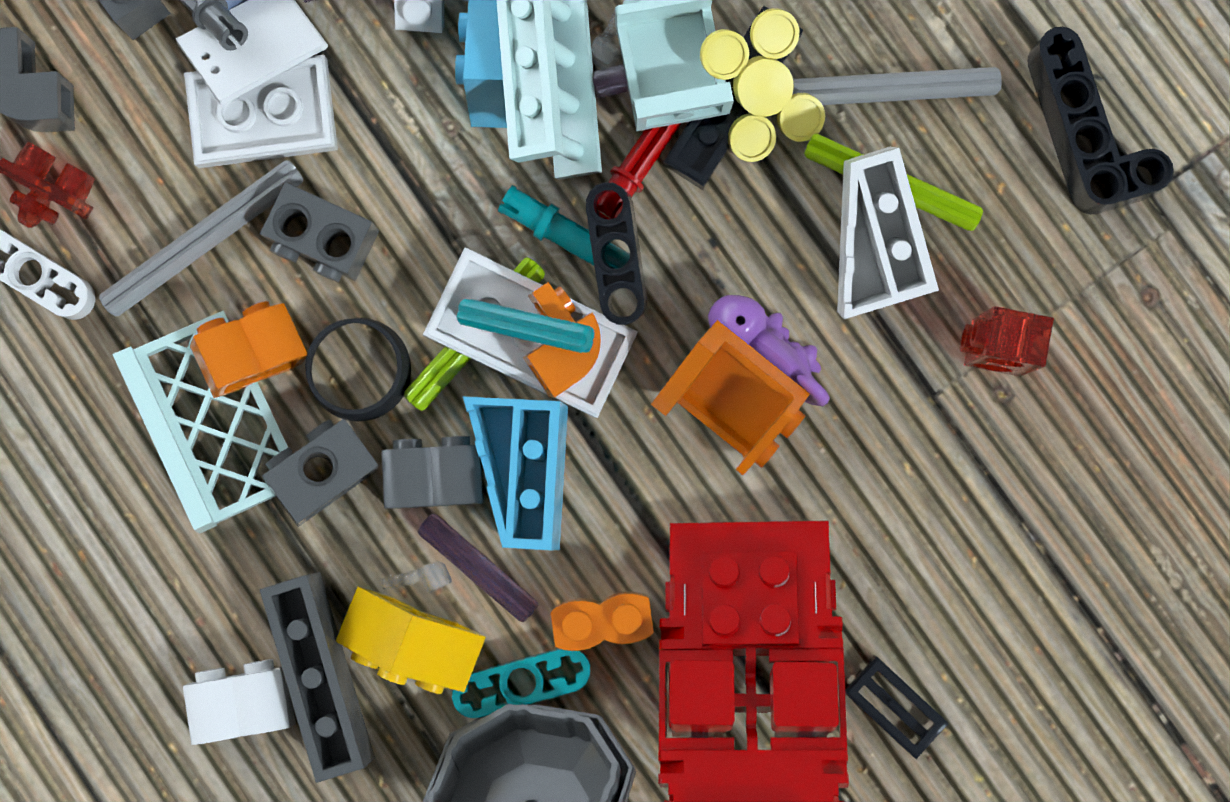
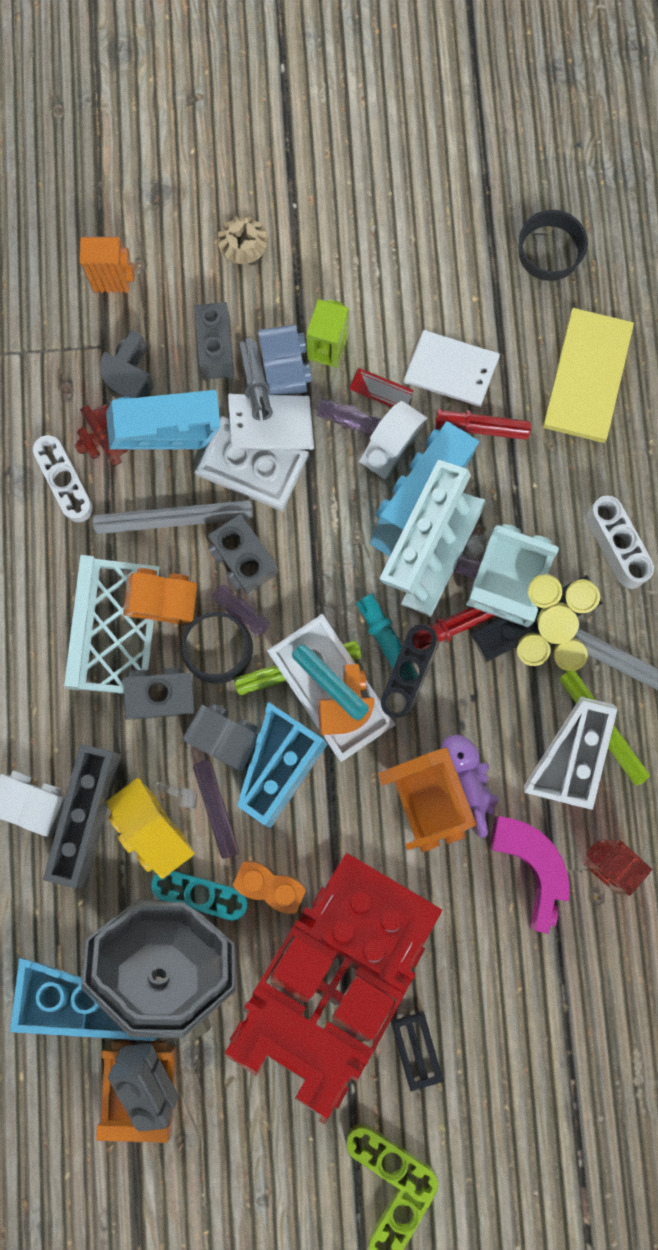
camera: 30 degrees right, 5 degrees down
(113, 121) = (163, 421): none -> medium azure wedge
(359, 304) = (240, 610): none -> clear purple axle
(911, 387) = (542, 858): none -> dark pink arch

